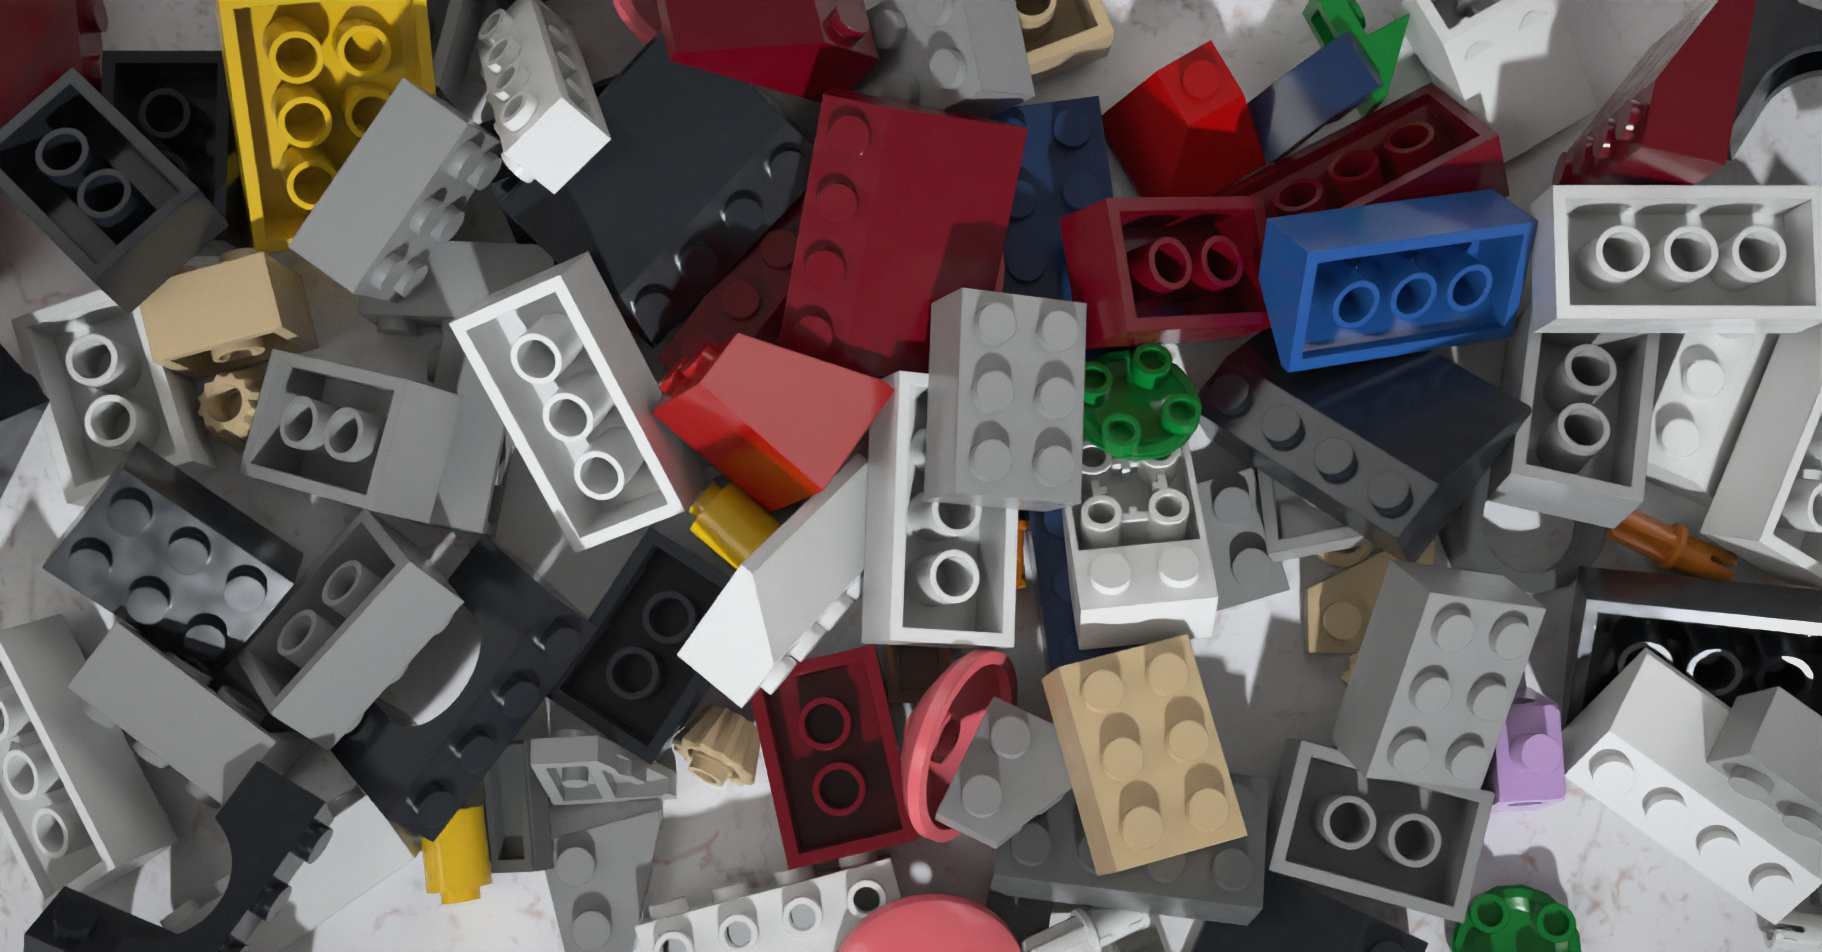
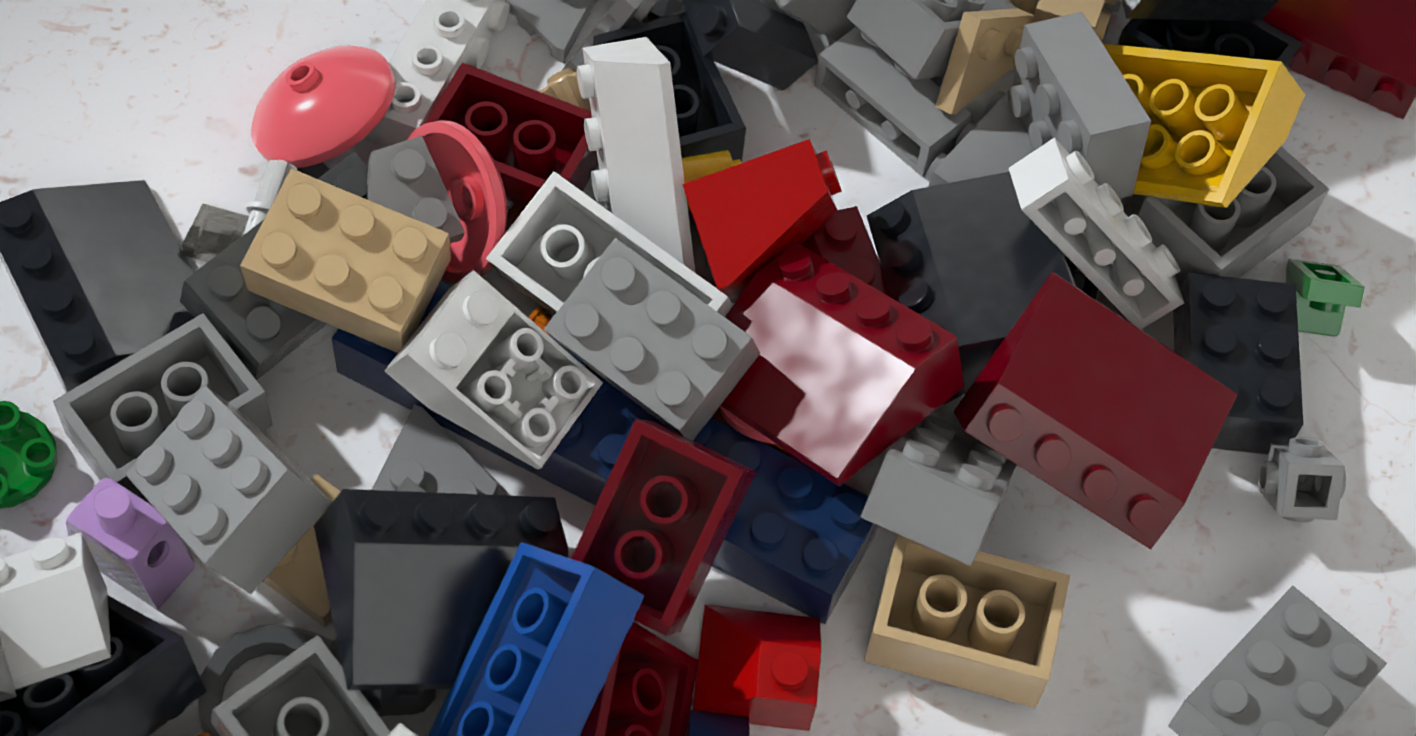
camera: 120 degrees right, 25 degrees down
(370, 349) = (981, 55): none -> tan wing
(579, 403) = (873, 132): white brick -> none
(1139, 403) = (580, 433): green dish -> none

